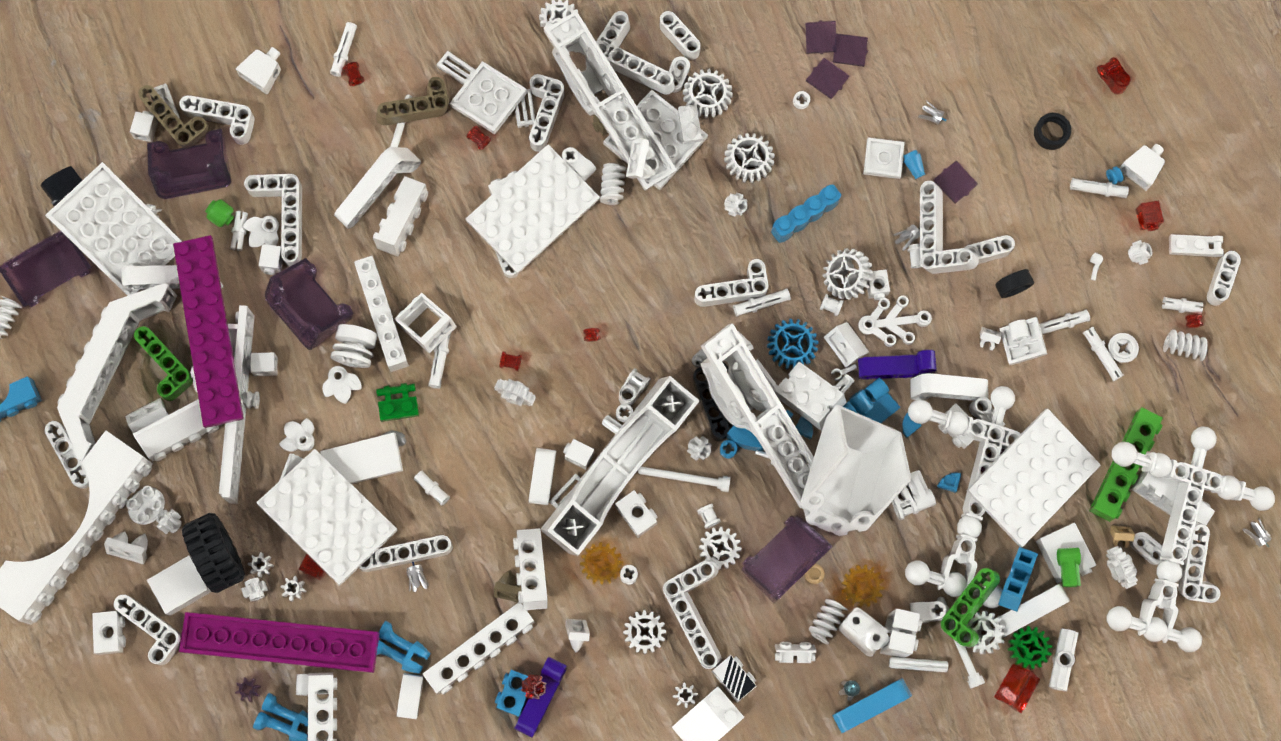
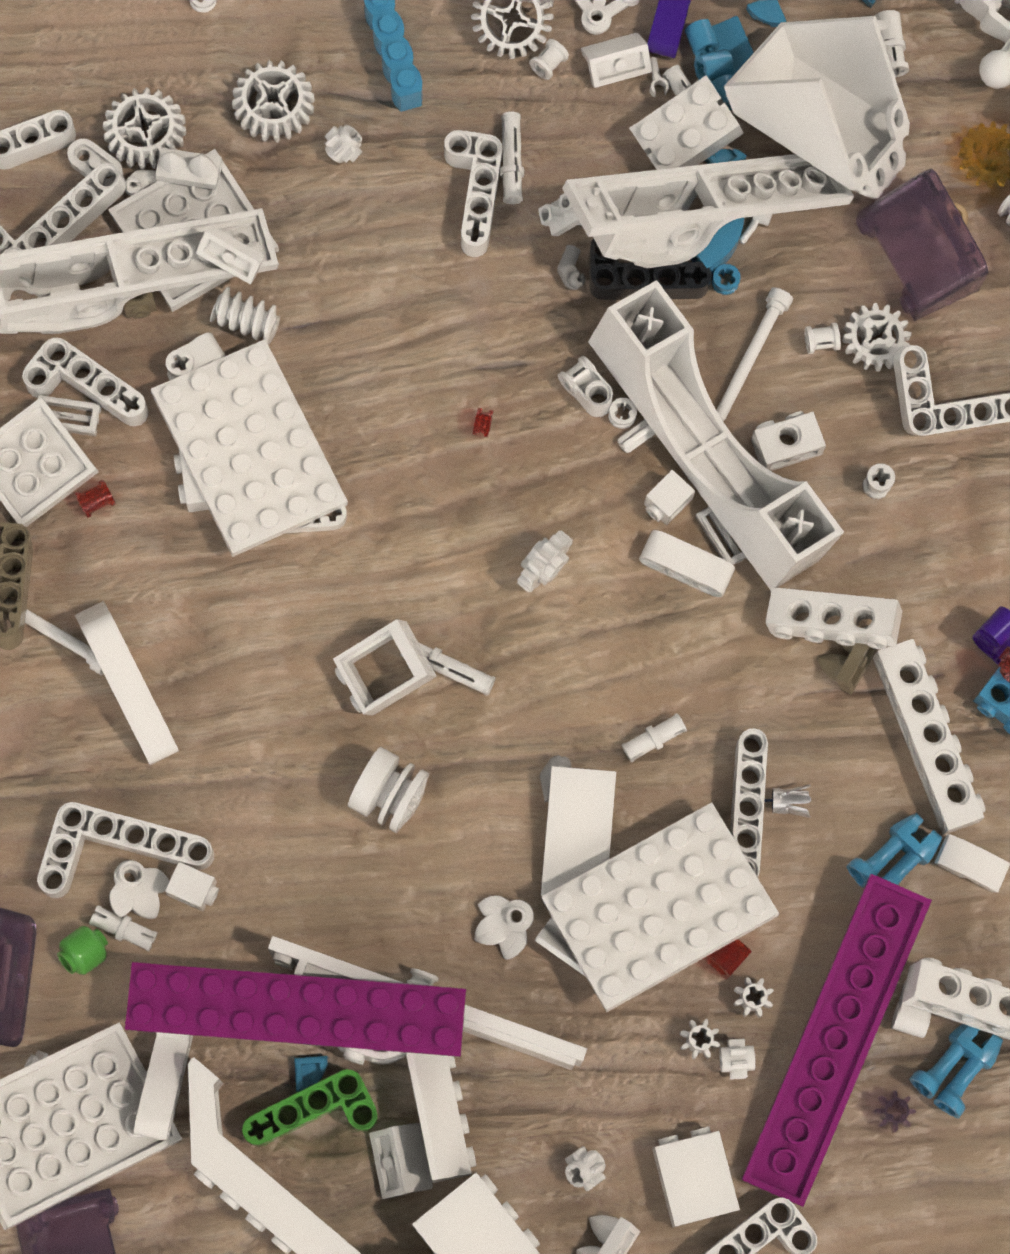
camera: 75 degrees left, 0 degrees up
(145, 505) = (546, 1201): white dish -> none
(184, 355) = (309, 1071): none -> dark azure tile
(213, 552) = (670, 1098): black tyre -> none
(263, 364) = (368, 946): white brick -> none
(305, 305) = (293, 851): clear purple windscreen -> none
(341, 387) = (444, 831): white plate -> none
(381, 314) = (343, 734): white brick -> none
(397, 408) = (507, 753): green plate -> none
(401, 216) = (189, 656): white wedge -> none
(510, 361) = (486, 557): clear red bush -> none
(577, 632) = (949, 579): white tile -> none
(613, 568) = (860, 523): clear yellow gear -> none
(638, 638) = (967, 473): white gear -> none
(674, 100) = (139, 180): none -> white arm
(699, 448) = (714, 318): white gear -> none
(787, 338) = (572, 145): dark azure gear -> none

